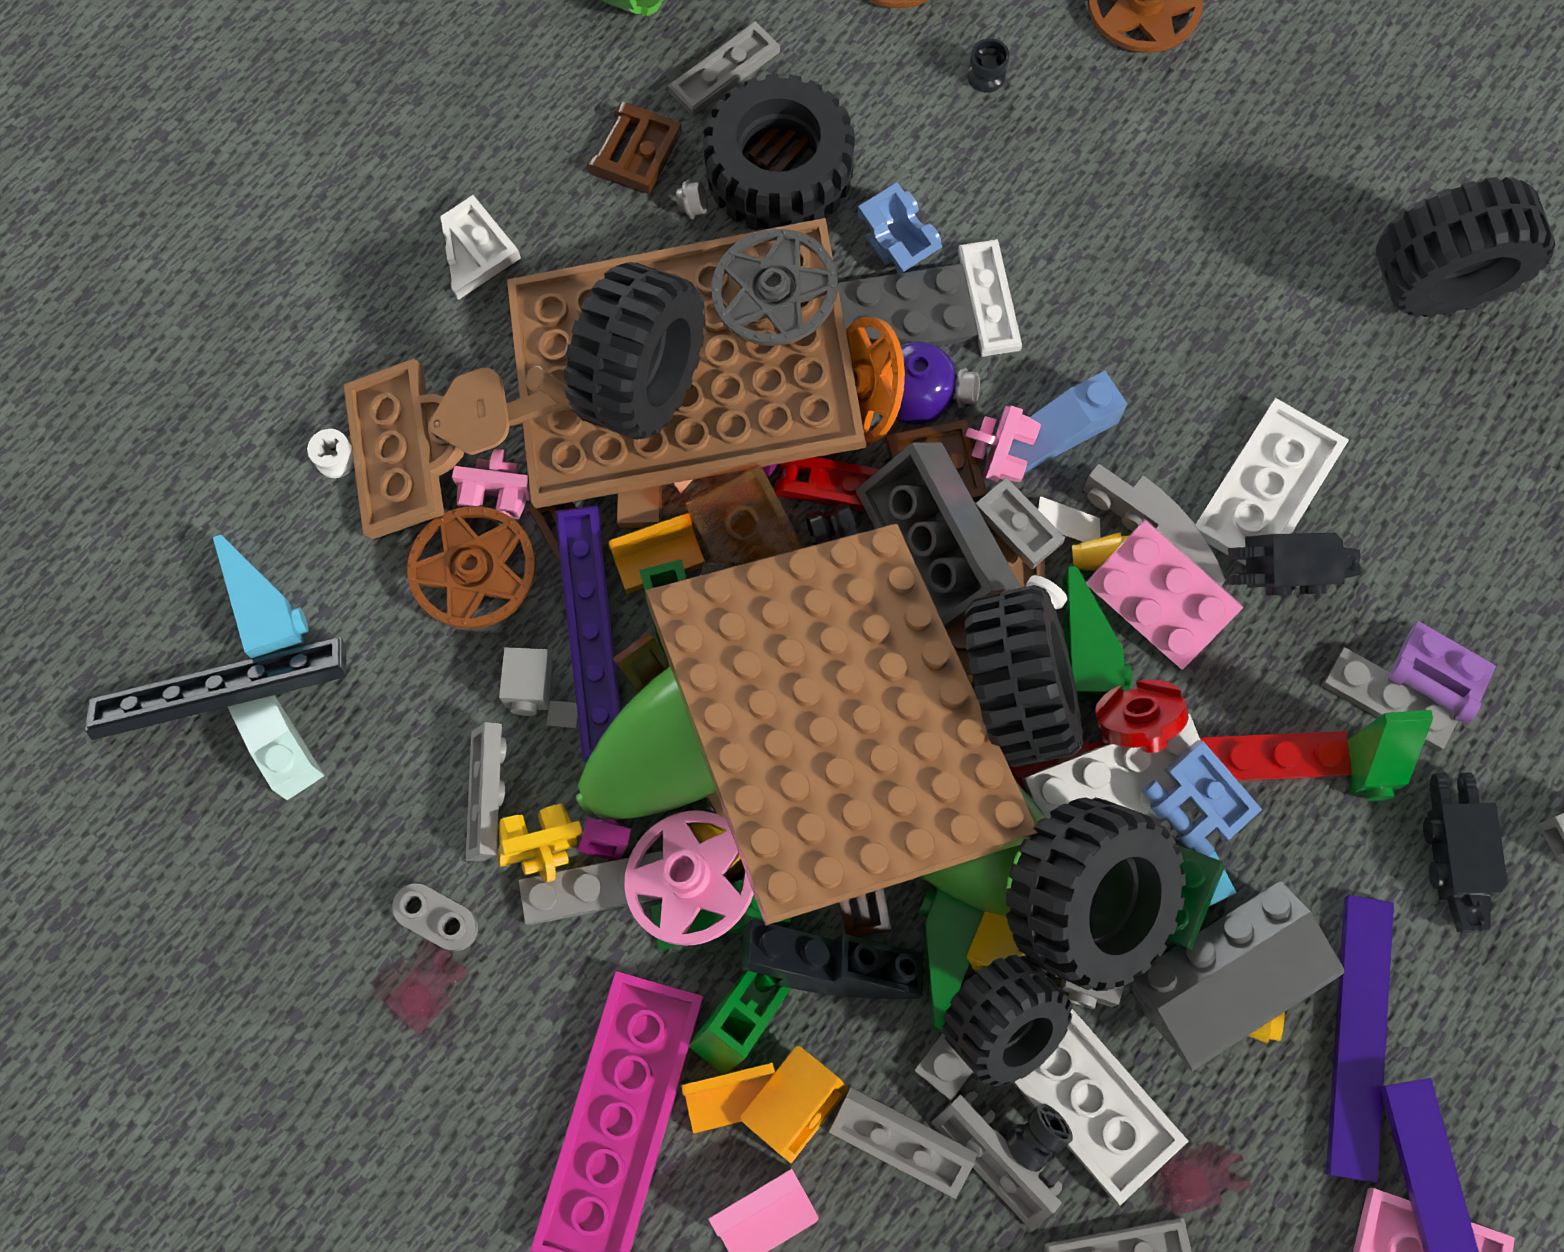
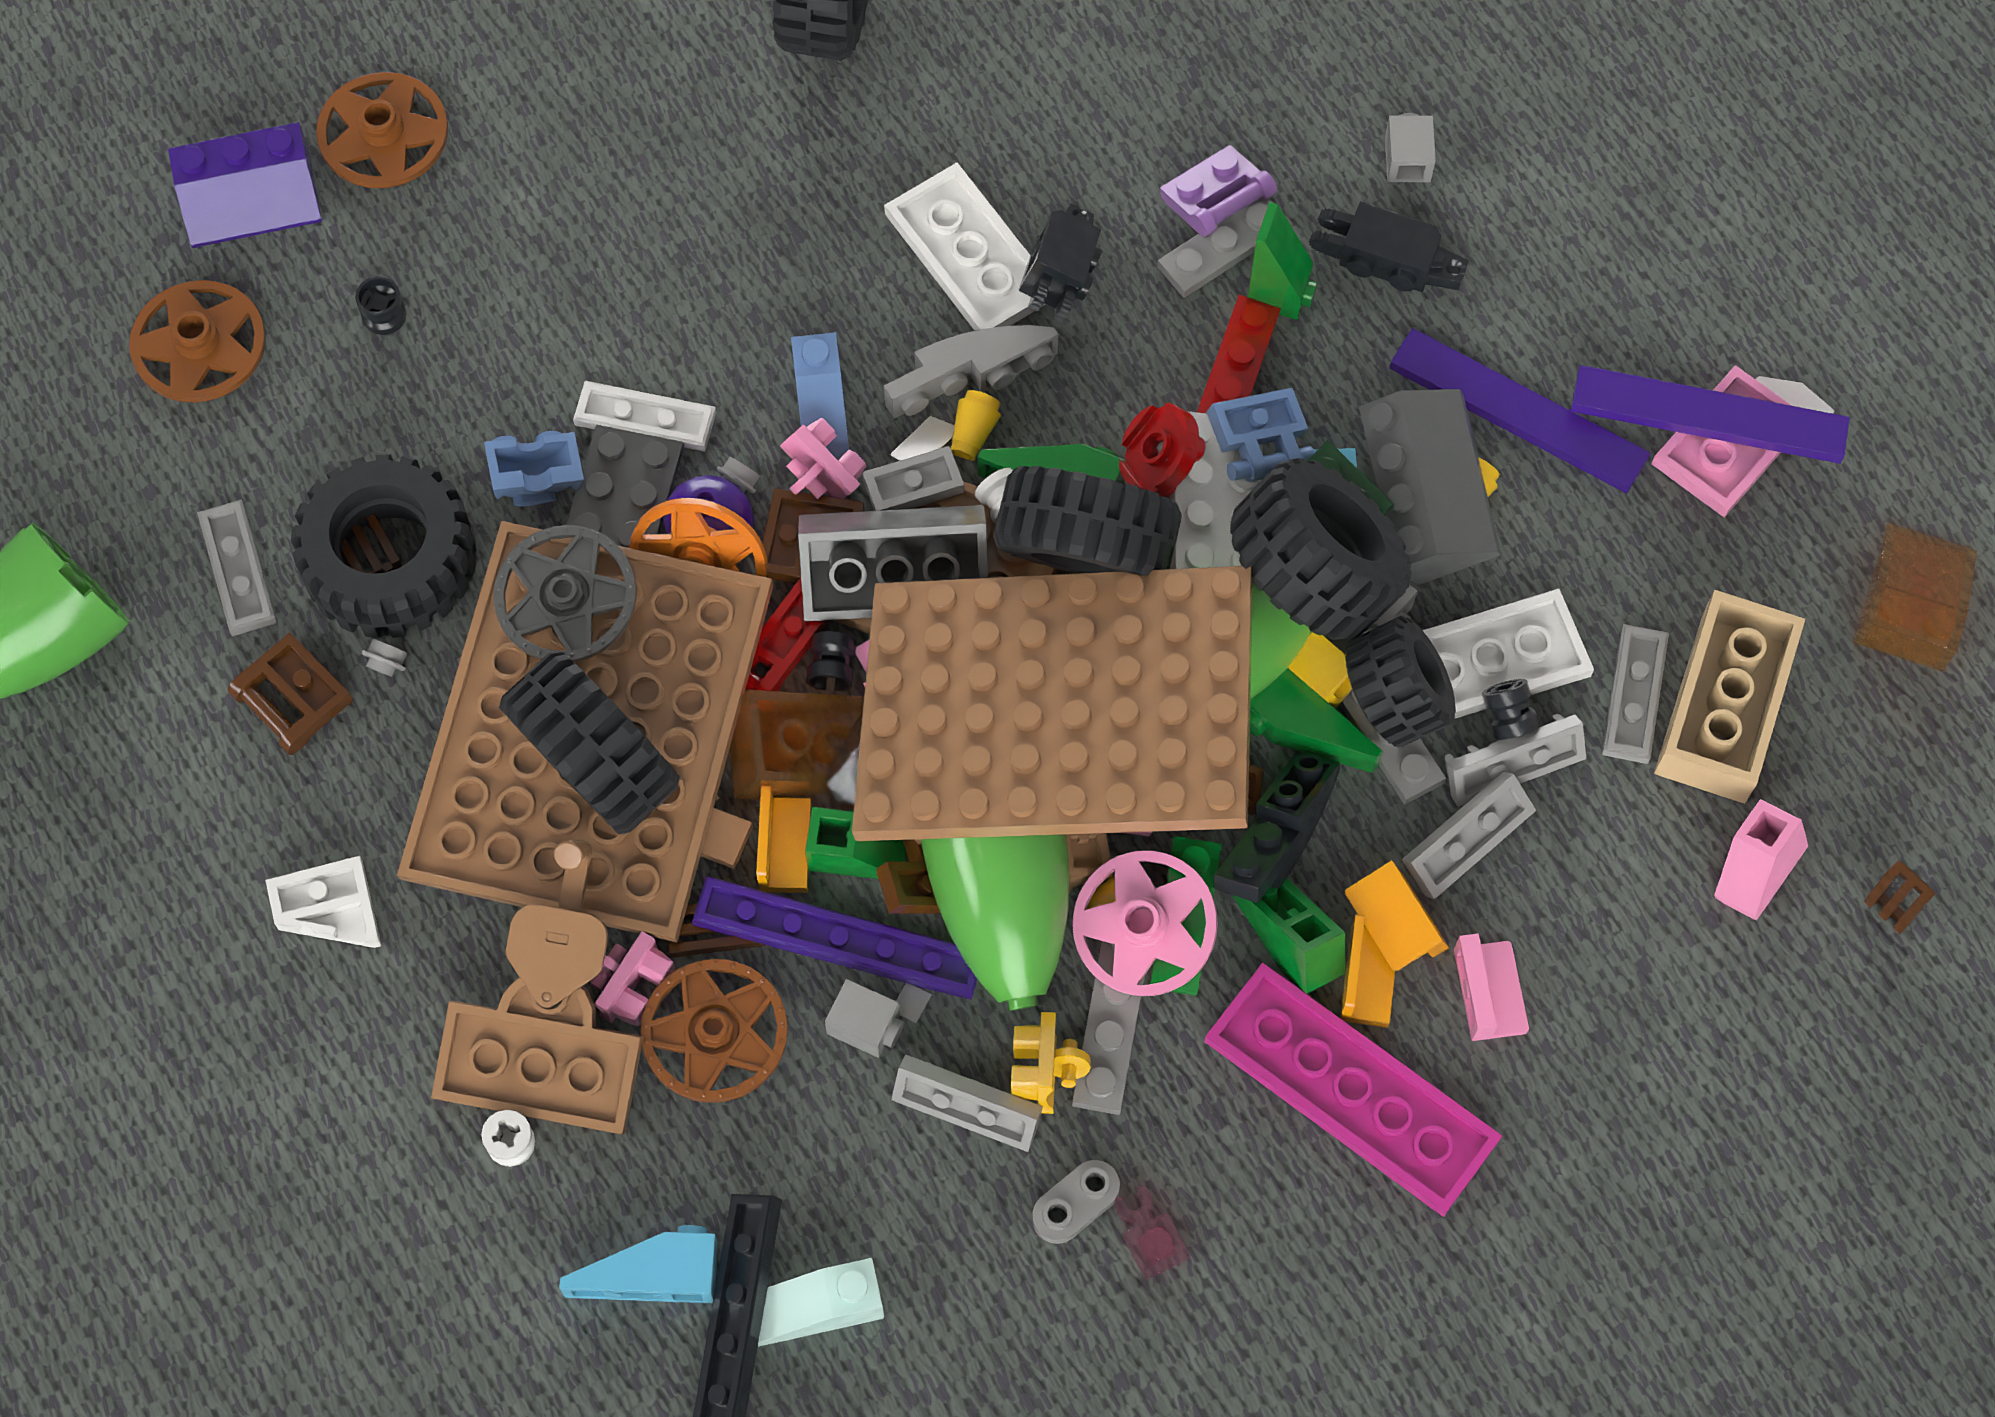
camera: 70 degrees left, 5 degrees down
(604, 838) = (1068, 998): magenta plate -> none
(1164, 594) = (1042, 386): bright pink plate -> none
(1196, 1184) = (1595, 601): clear pink plate -> none

